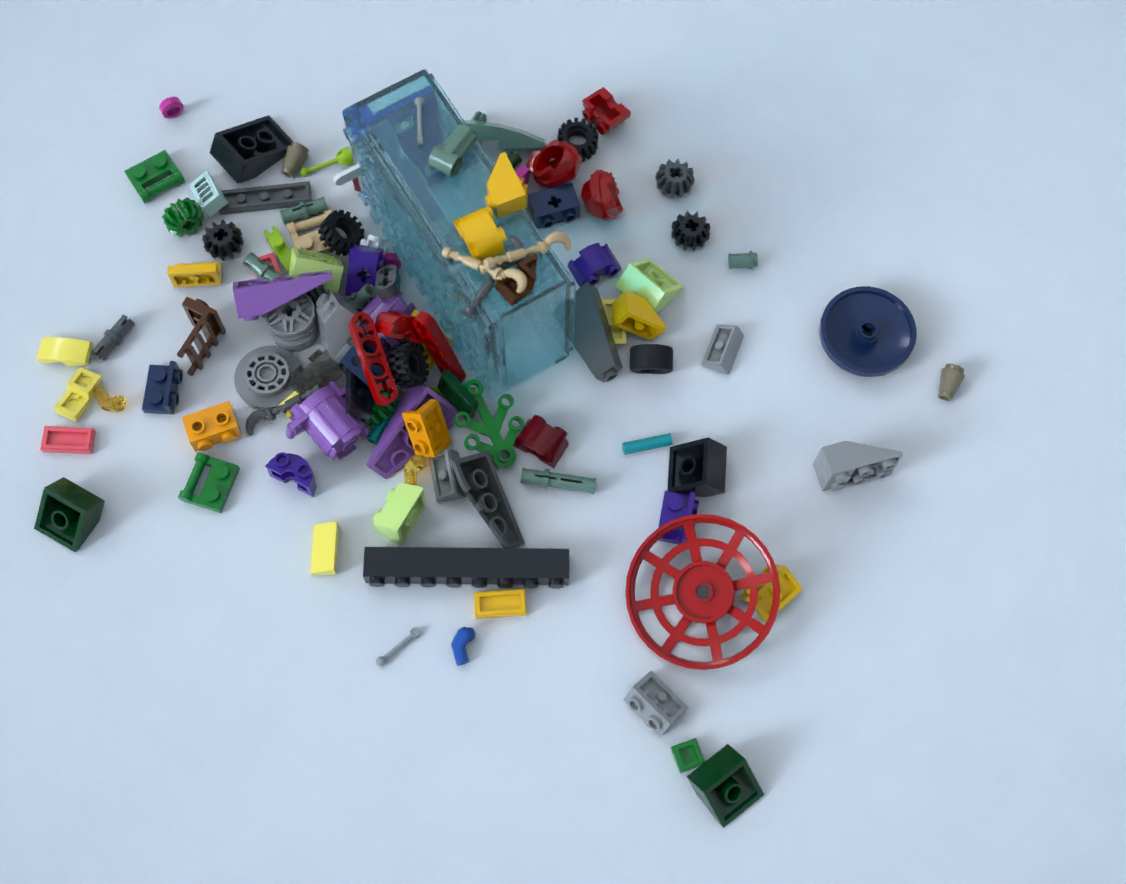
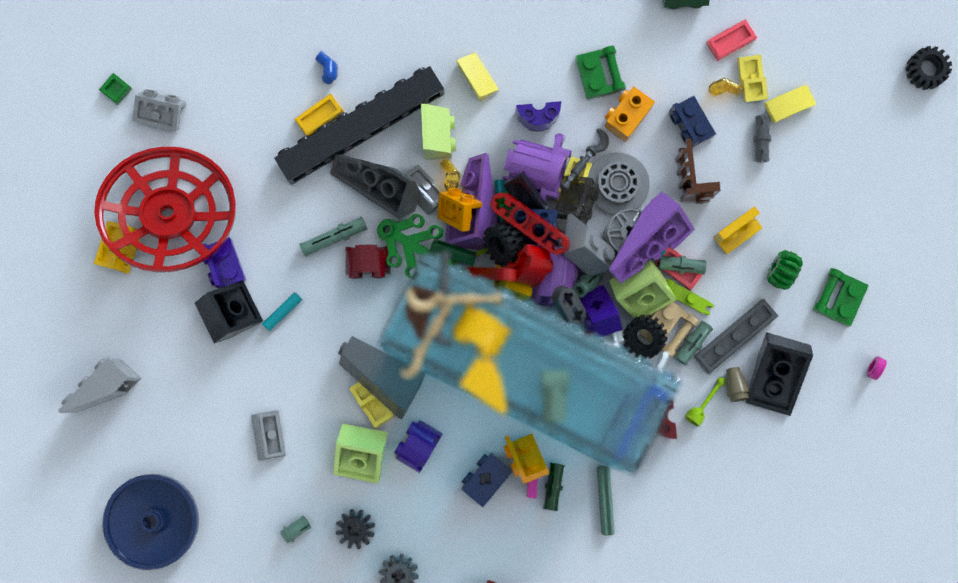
camera: 150 degrees right, 15 degrees up
(214, 202) = (782, 313): light aqua slope -> none
(223, 240) = (732, 267): black gear -> none
(414, 634) = (368, 56): light grey hinge -> none
(419, 102) = (618, 429): light grey hinge -> none
(508, 136) = (582, 518): sand green slope -> none
(557, 171) = (508, 516): red helmet -> none
(580, 129) = (512, 574): black tyre -> none
(601, 196) = (448, 511): red helmet -> none
(636, 316) = (353, 413): yellow slope -> none
(651, 359) = (318, 383): black tyre -> none
(725, 785) = (75, 81): dark green slope -> none
(950, 380) = (61, 521): dark tan cone -> none

